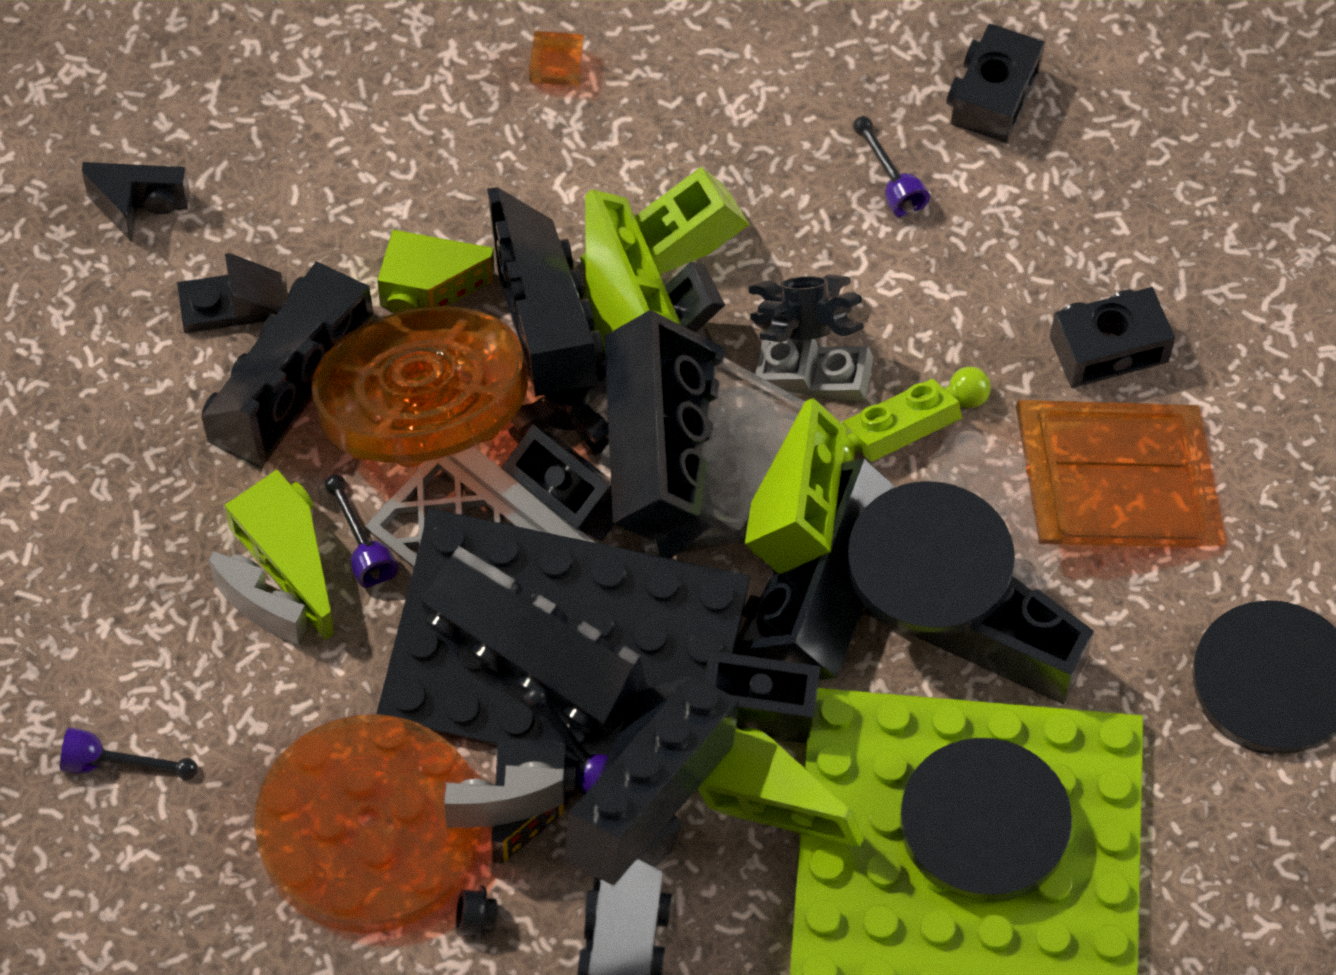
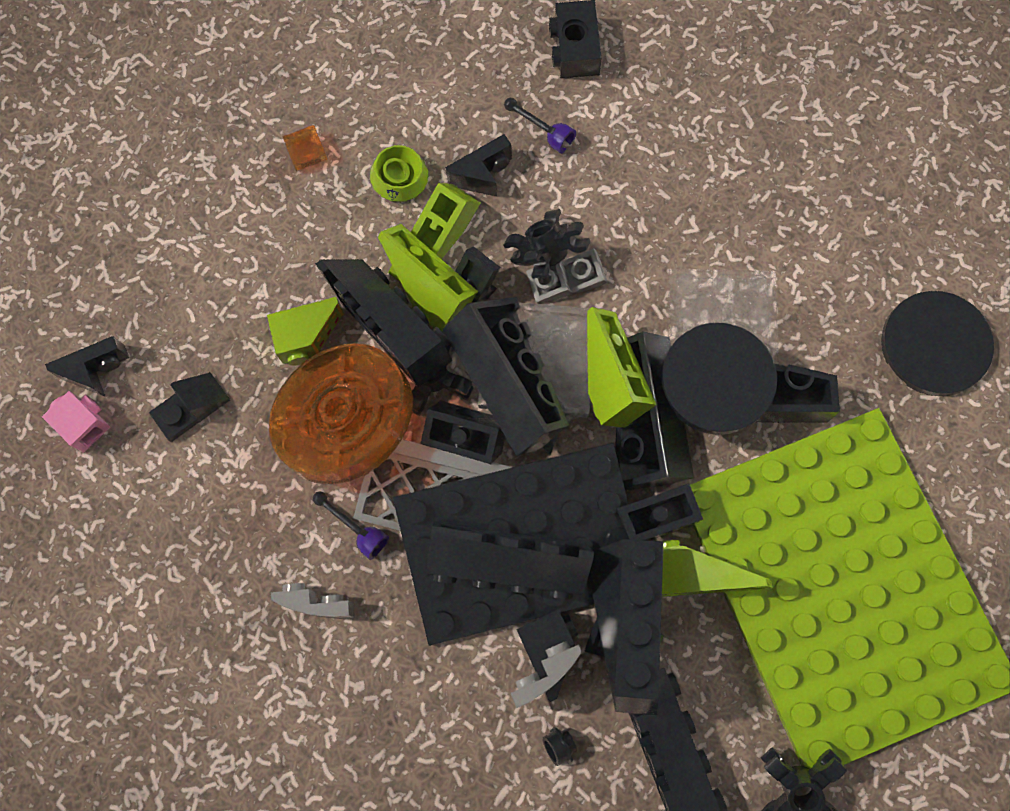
camera: 20 degrees left, 15 degrees up
(83, 249) = (76, 420): none -> bright pink brick
(84, 752) = (259, 764): hinge -> none
(276, 376) = (245, 442): black wedge -> none
(279, 532) = (309, 554): lime slope -> none
(356, 873) = (452, 759): clear orange piece -> none
(590, 765) = (582, 614): black hinge -> none
(647, 144) = (399, 182): none -> lime hat
(764, 179) = (474, 169): none -> black slope
(913, 414) = (643, 278): lime plate -> none
(985, 819) = (833, 528): black tile -> none
(1119, 474) = (781, 258): clear orange piece -> none
(1140, 342) = (741, 155): black brick -> none

